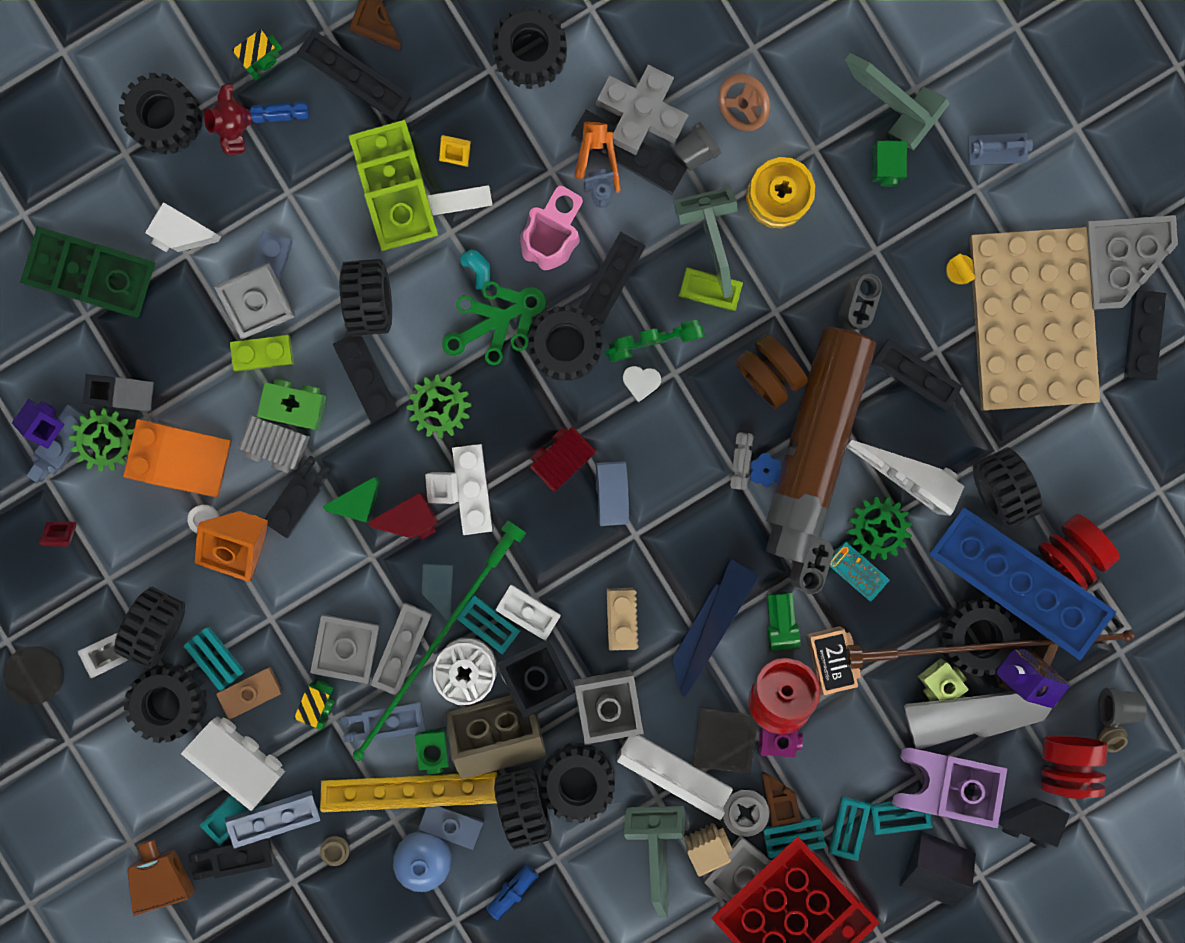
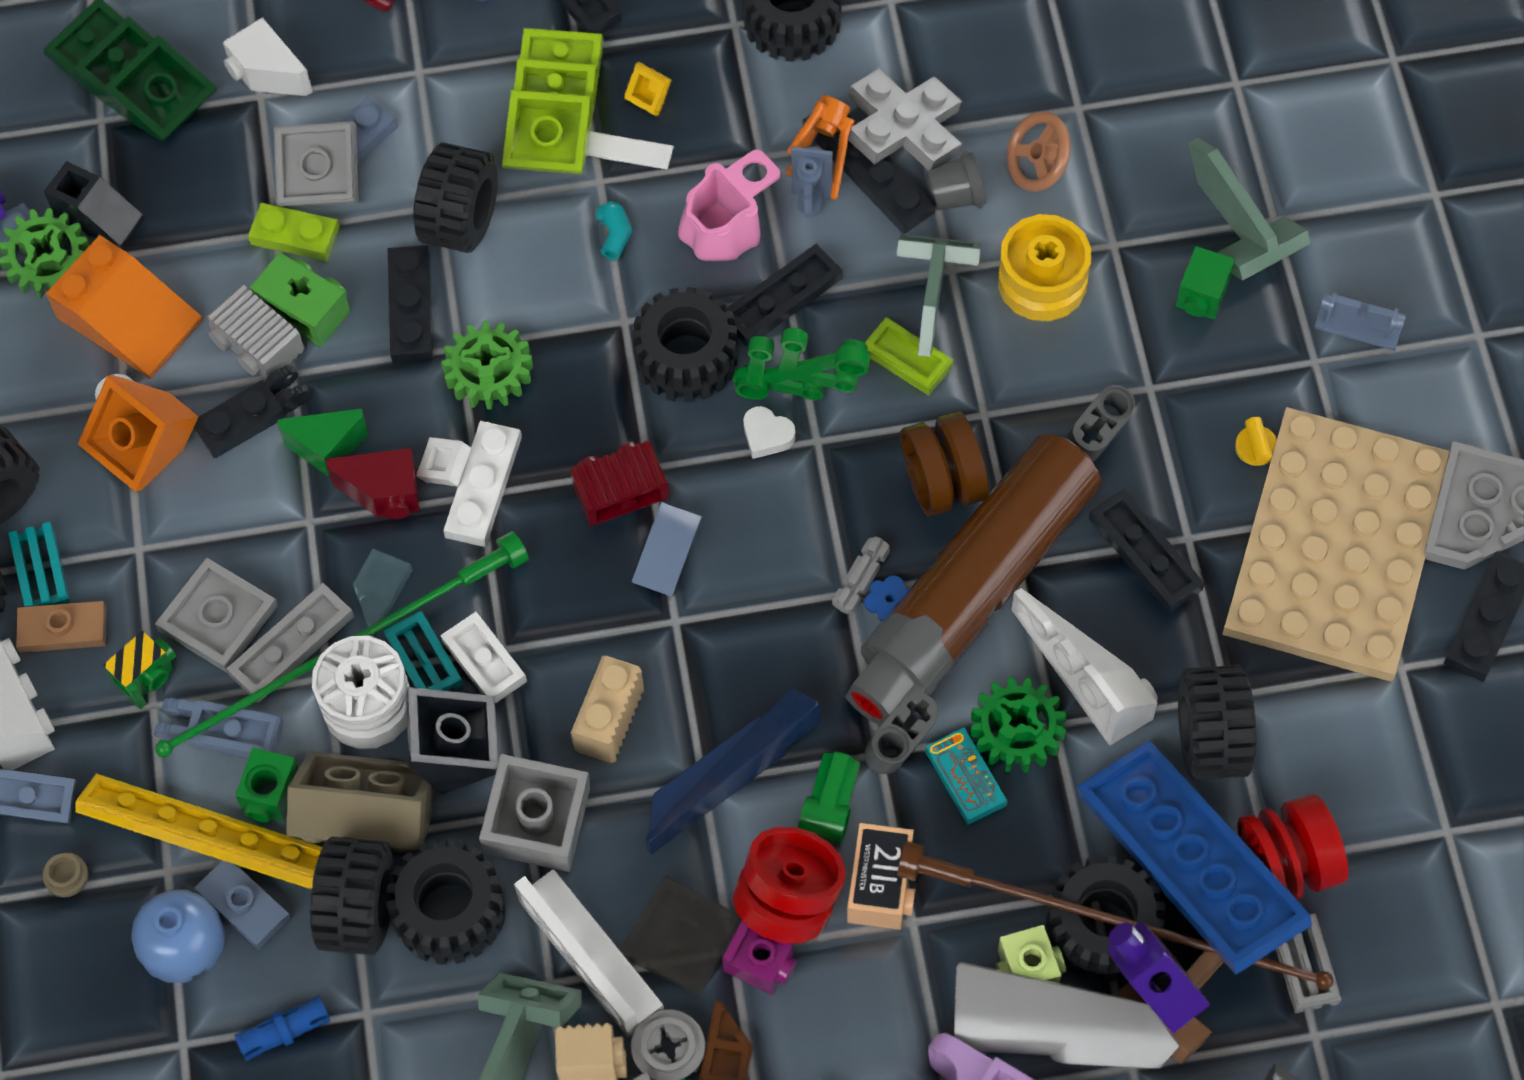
camera: 20 degrees right, 25 degrees down
(498, 320) = (611, 293): green plant -> none

